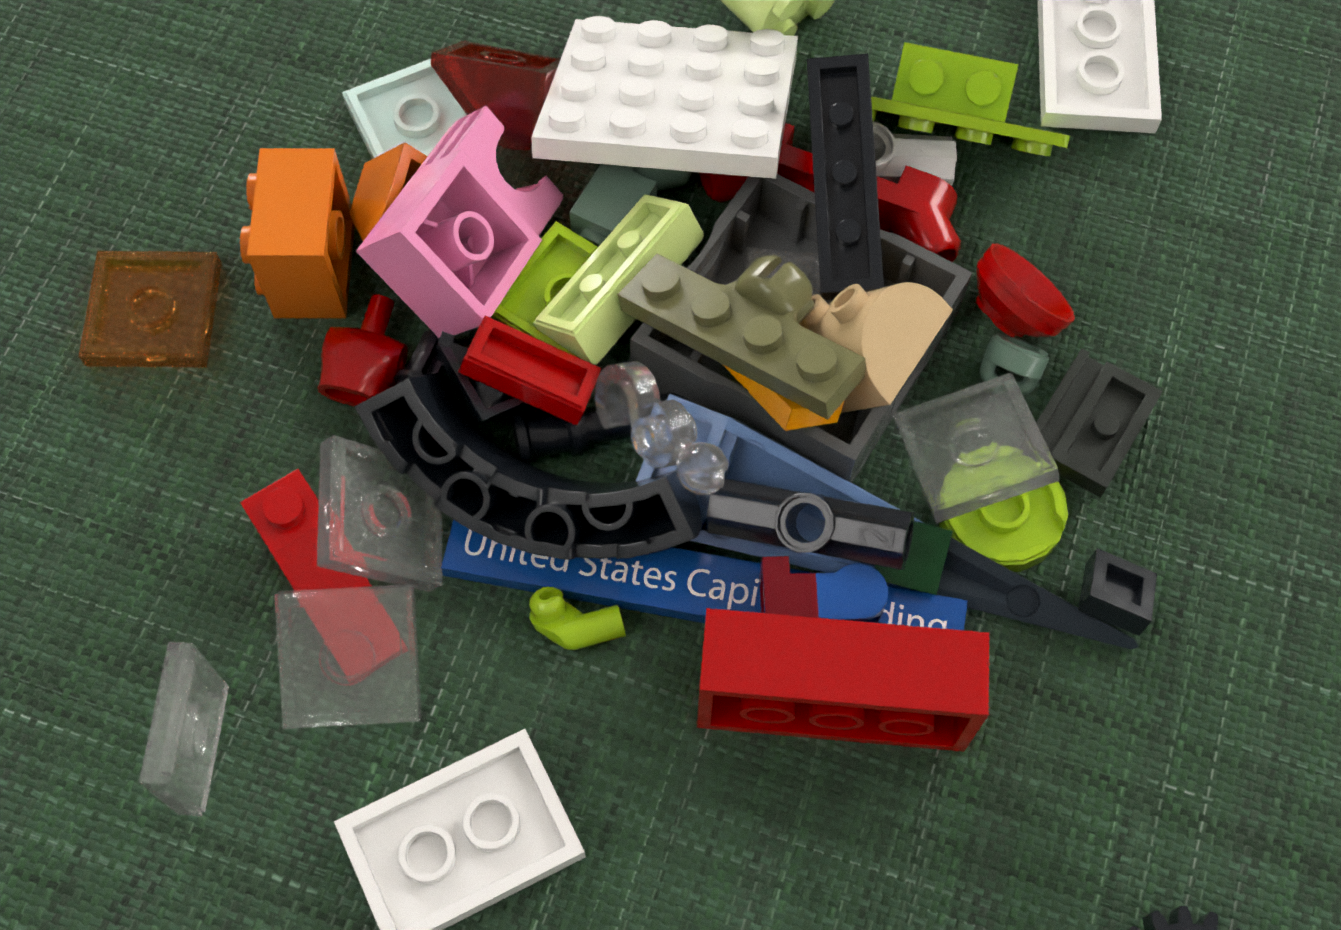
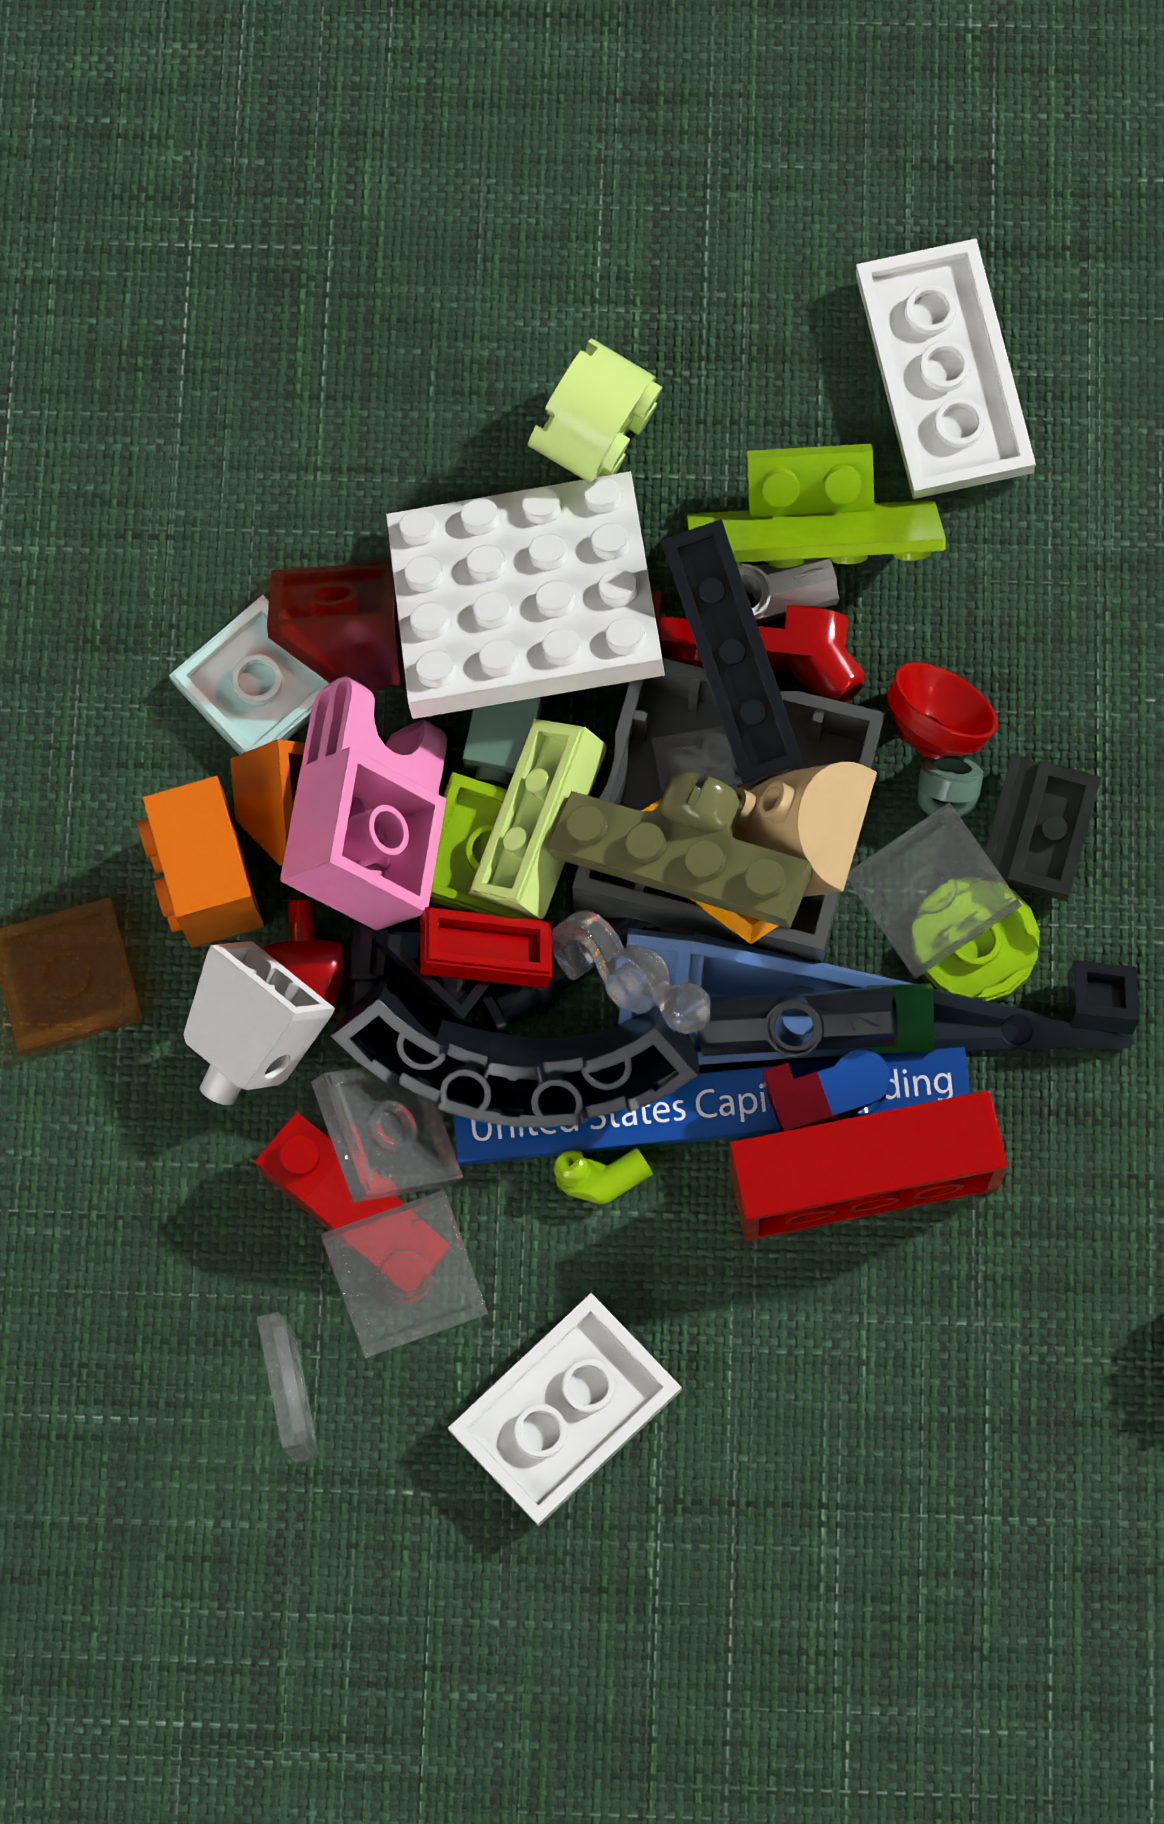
camera: 10 degrees left, 10 degrees up
(290, 380) = (250, 1020): none -> white torso

